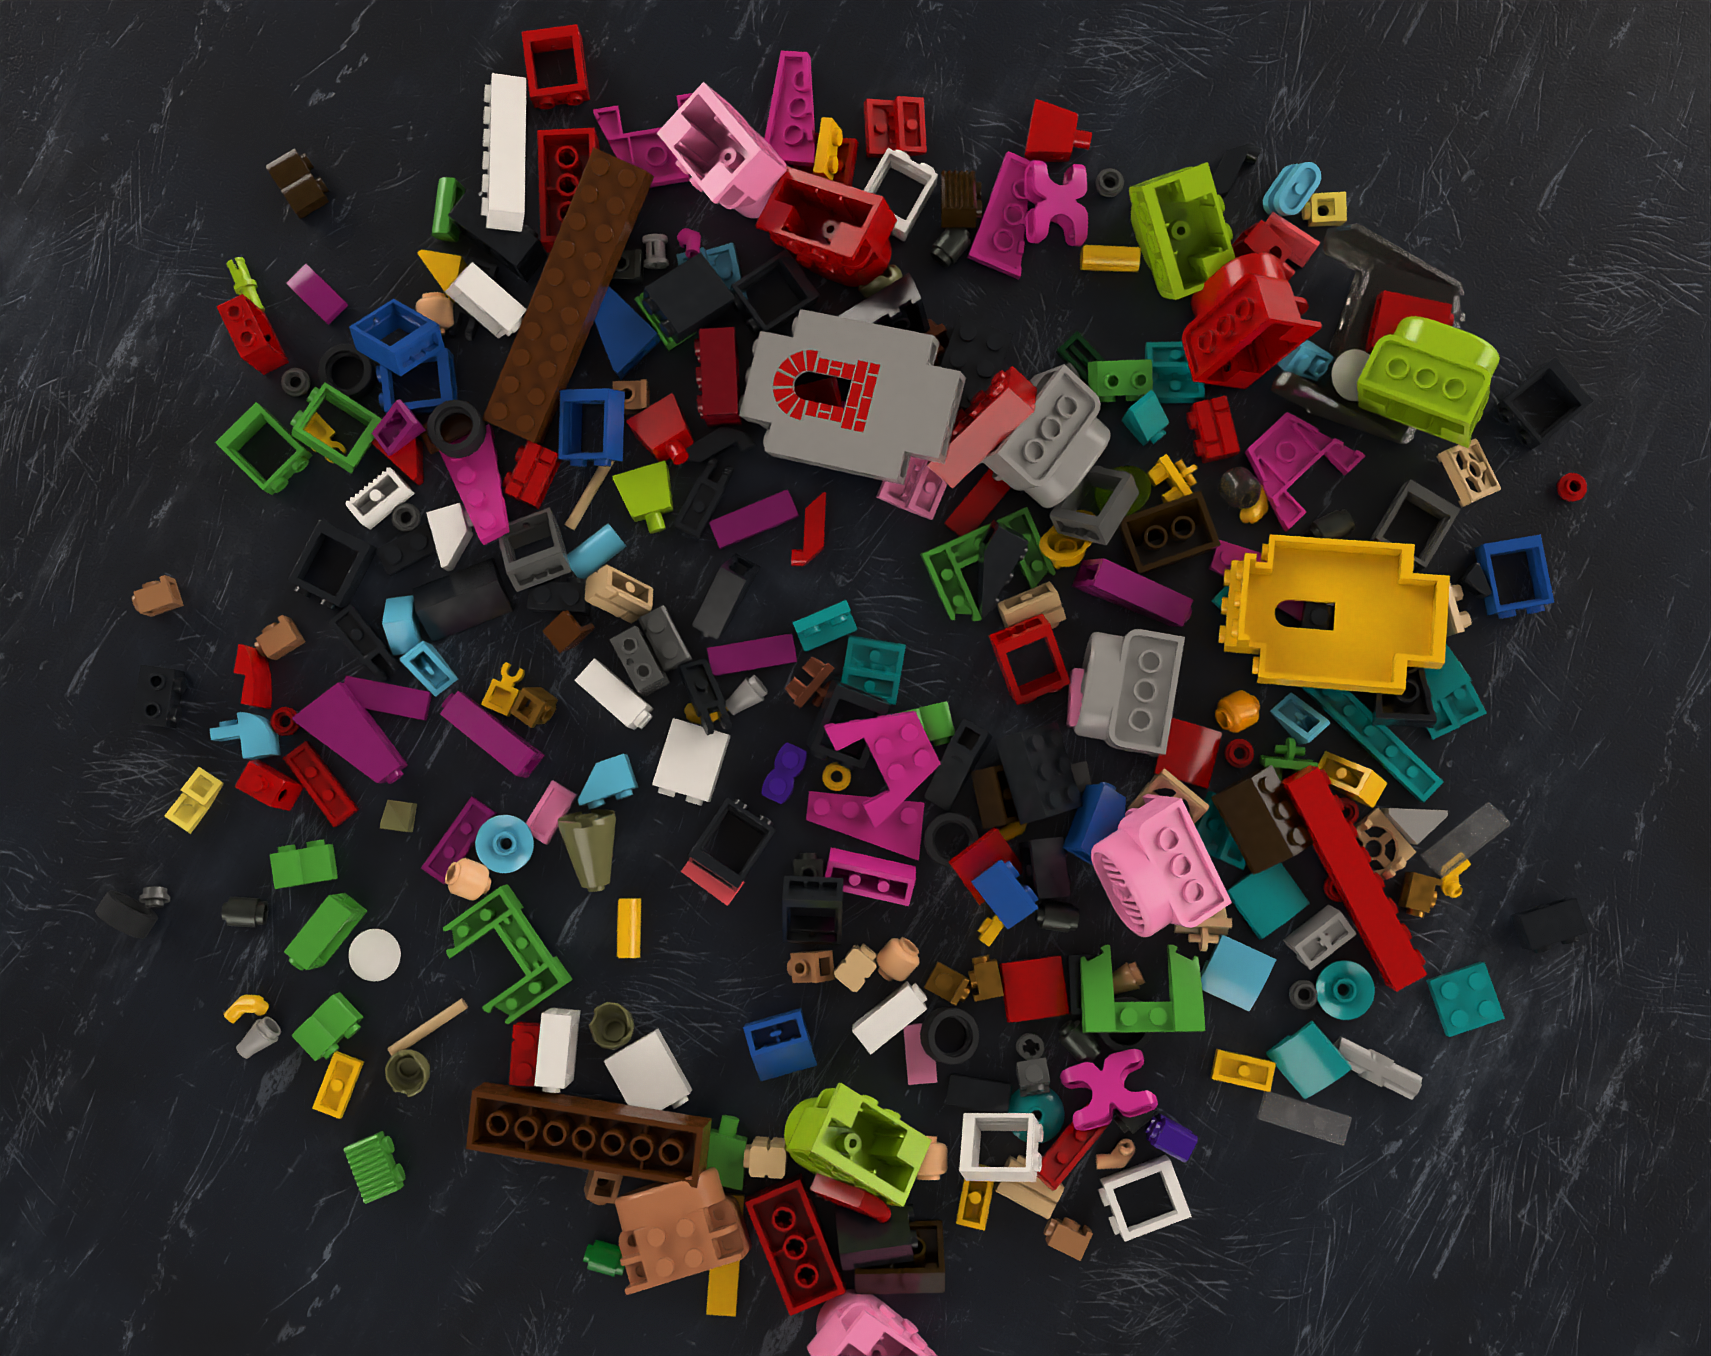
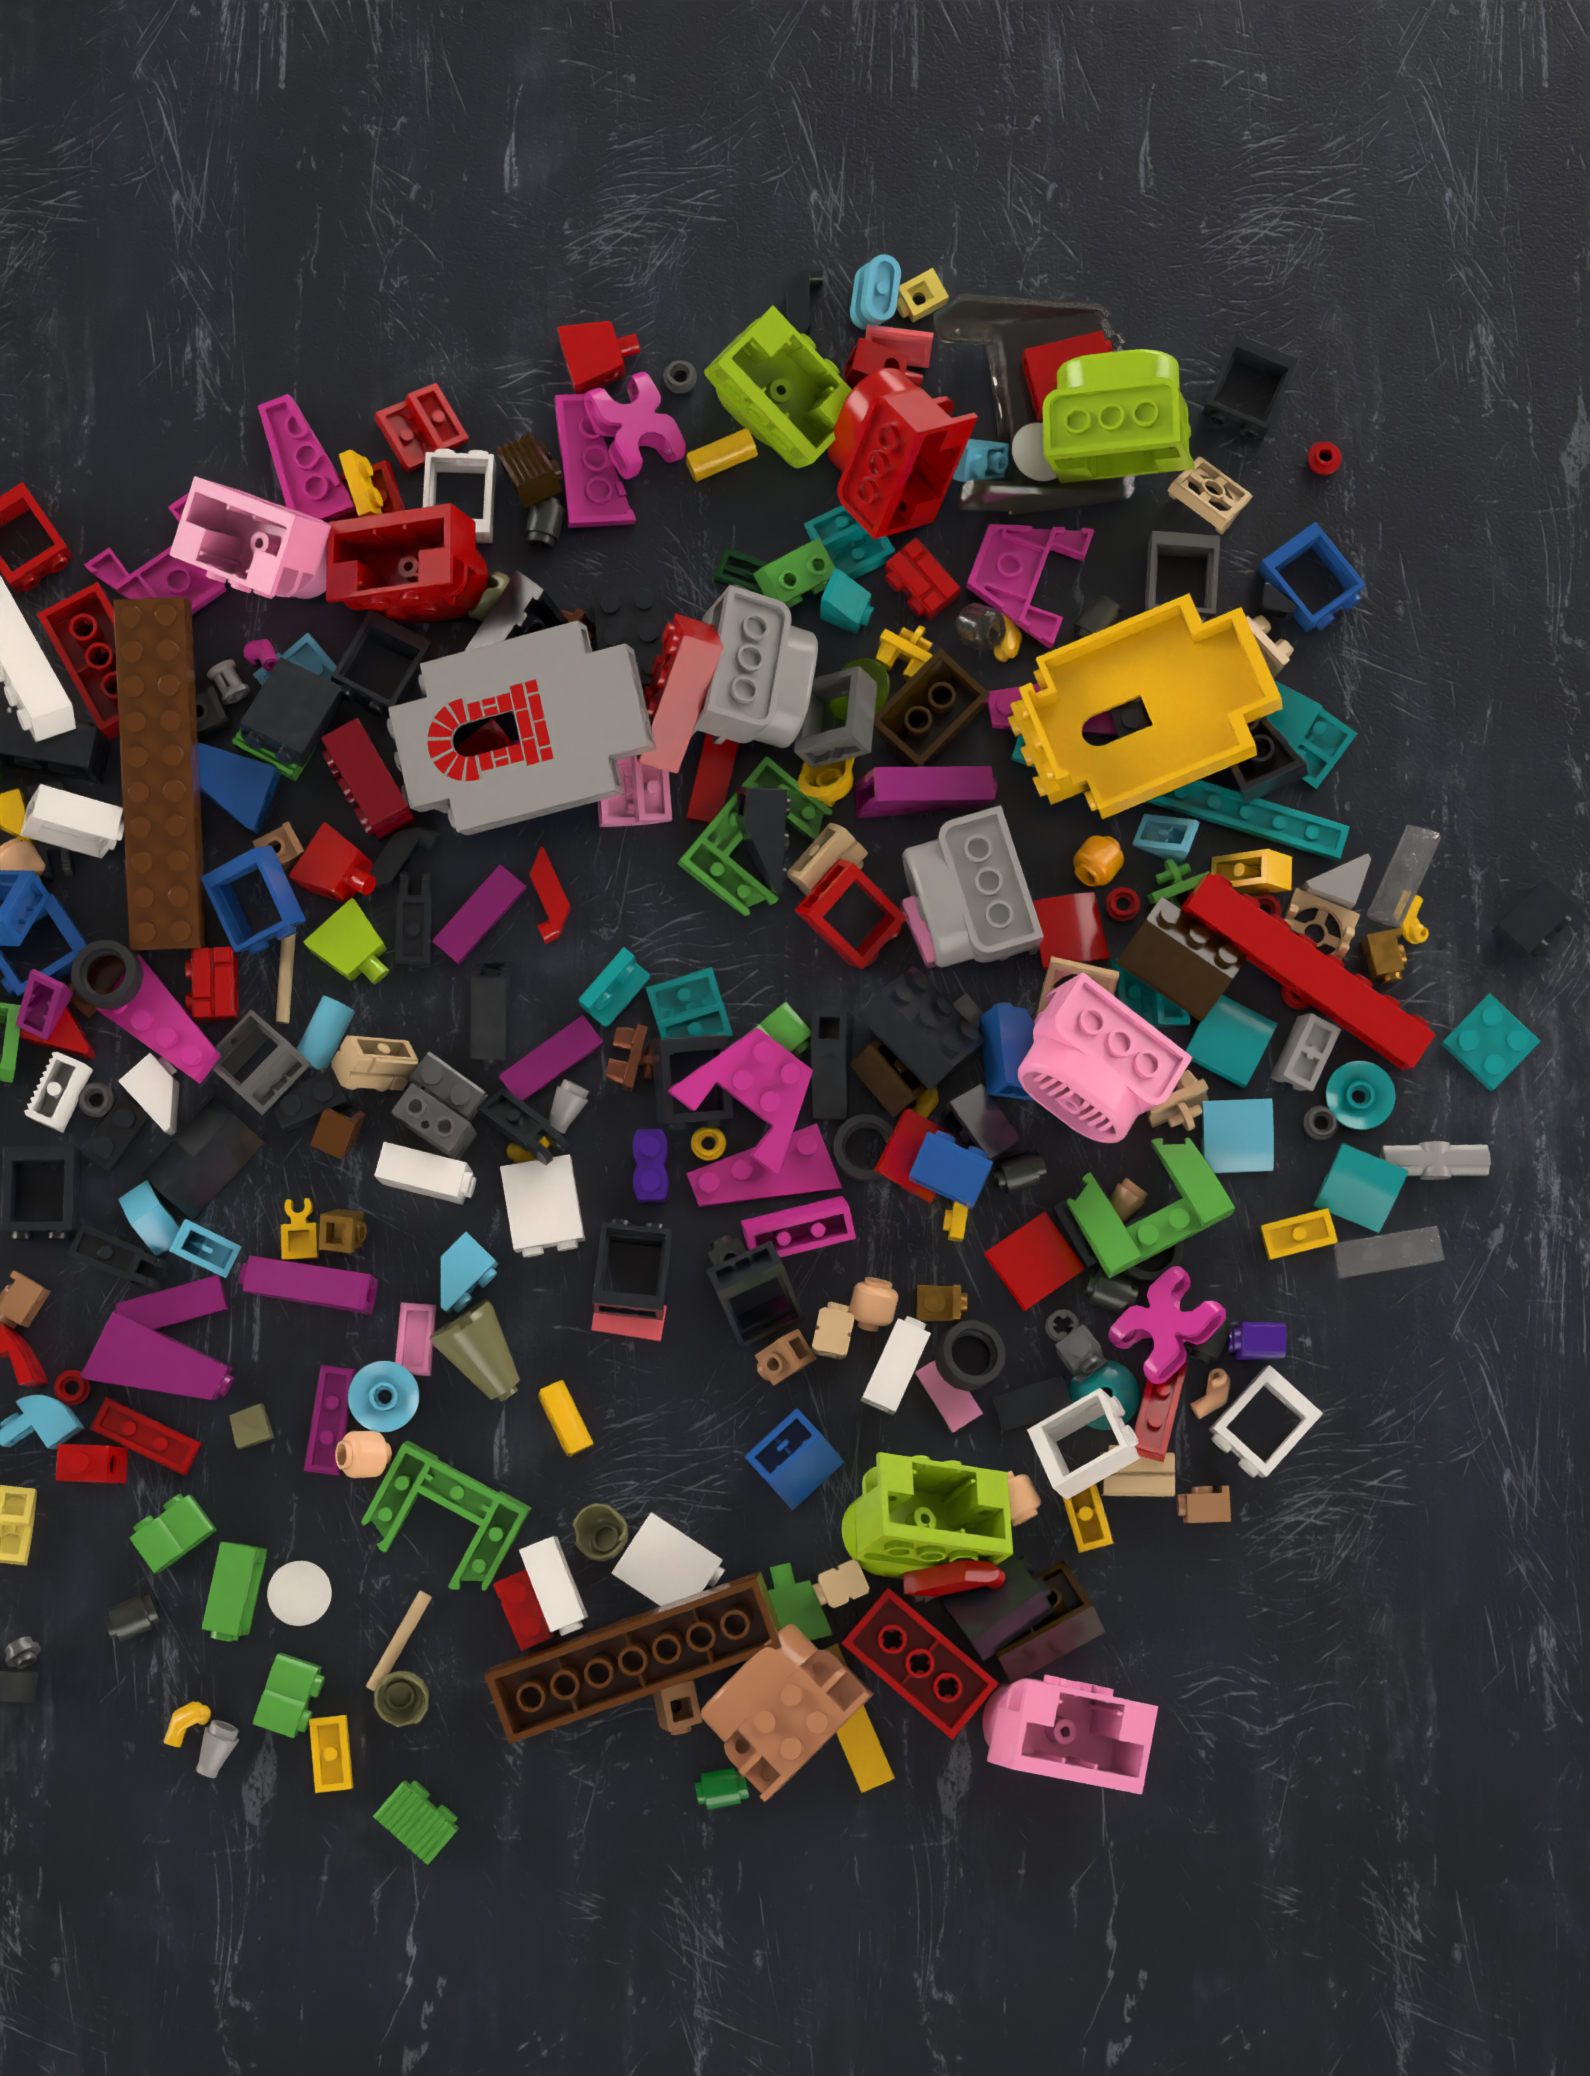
camera: 35 degrees left, 5 degrees down
(985, 978) = (977, 1275): pearl gold brick -> none

